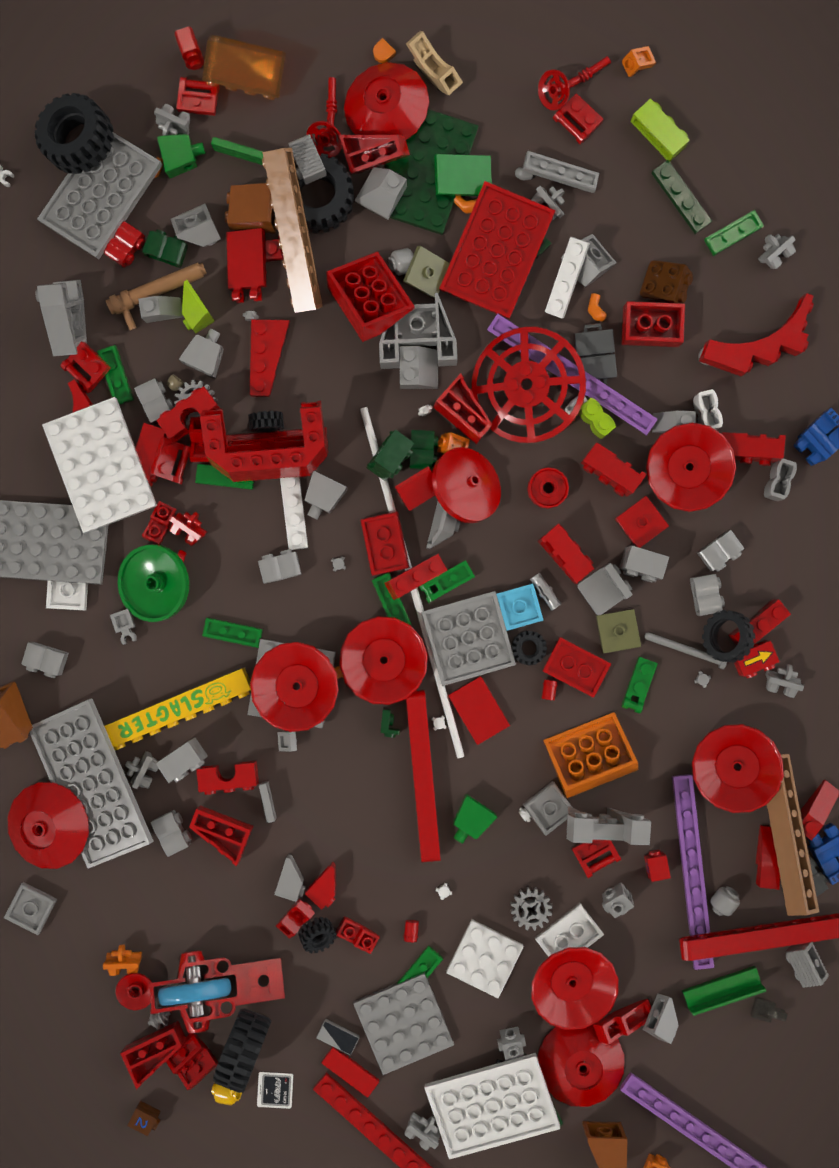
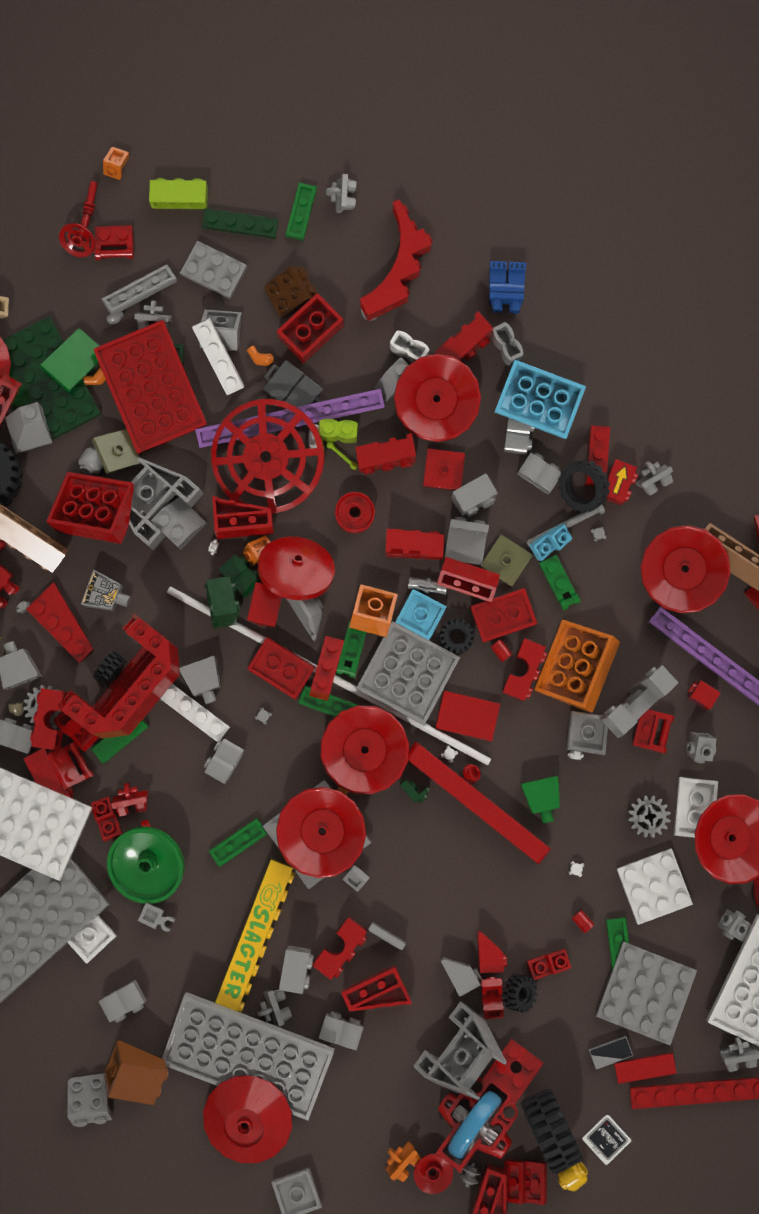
camera: 45 degrees left, 5 degrees down
(235, 939) = (464, 1056): none -> light grey wedge
(316, 364) = (104, 593): none -> torso
(440, 752) = (471, 773): none -> red plate
(489, 570) = (373, 610): none -> orange brick
(567, 716) = (532, 655): none -> red arch
(578, 617) = (468, 579): none -> red brick
(581, 453) = (353, 465): none -> lime hinge
(628, 211) = (213, 270): none -> light grey plate
(666, 650) = (549, 541): none -> medium azure slope
(762, 543) = (540, 399): none -> medium azure slope

